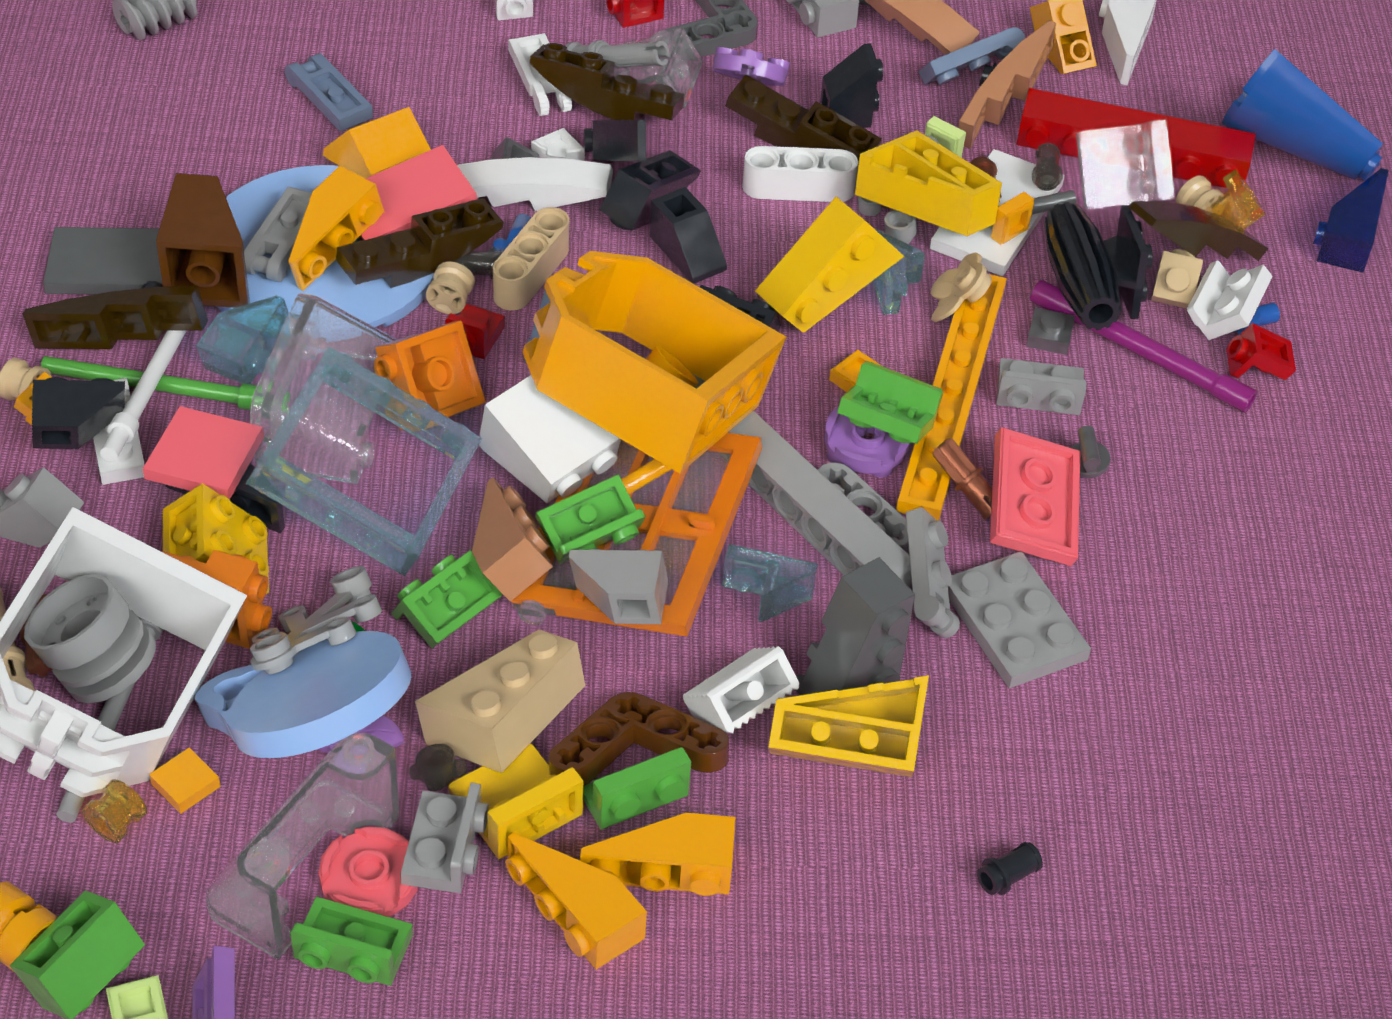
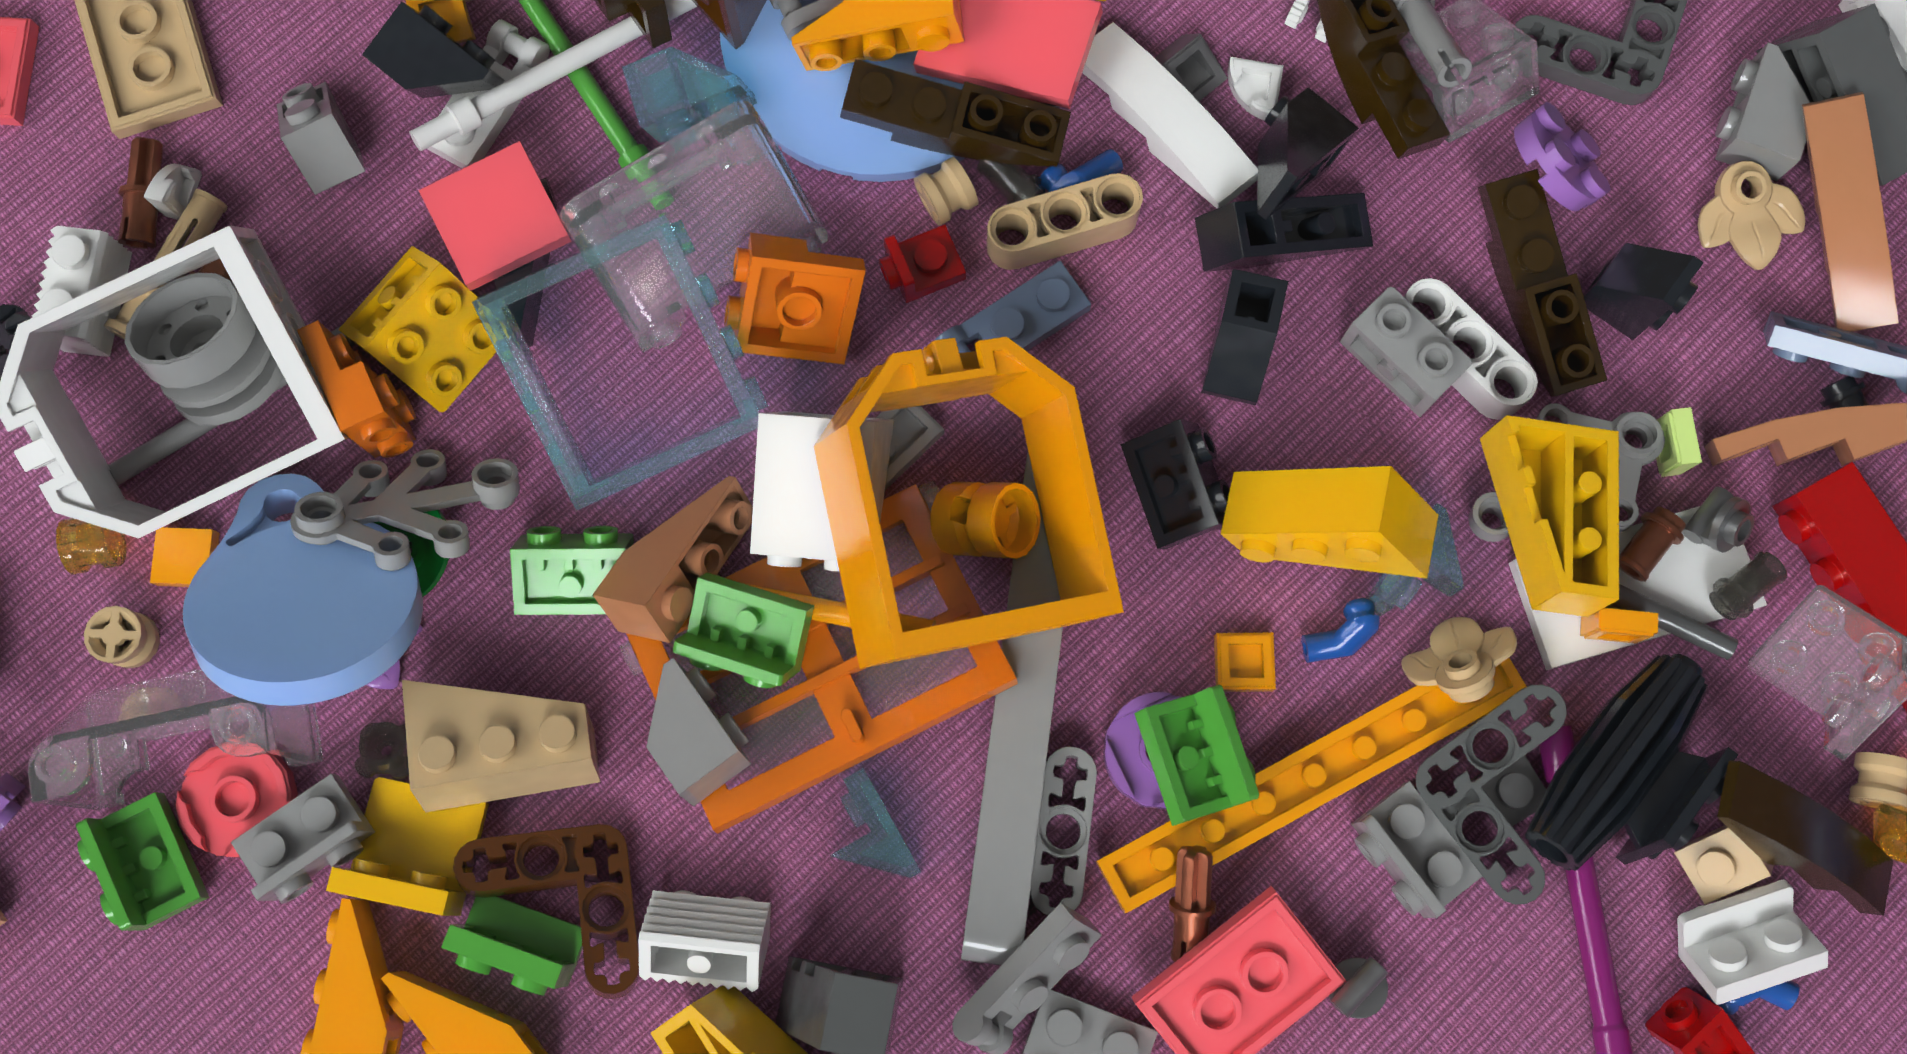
camera: 50 degrees right, 30 degrees up
(200, 833) = (109, 630): none -> tan wheel
(774, 191) = (1405, 351): none -> light grey bracket
(849, 35) = (1750, 223): none -> tan plate
(896, 328) = (1348, 638): none -> blue arm
(1004, 151) = (1721, 521): none -> flat silver plate
(1036, 335) = (1471, 796): none -> dark grey beam

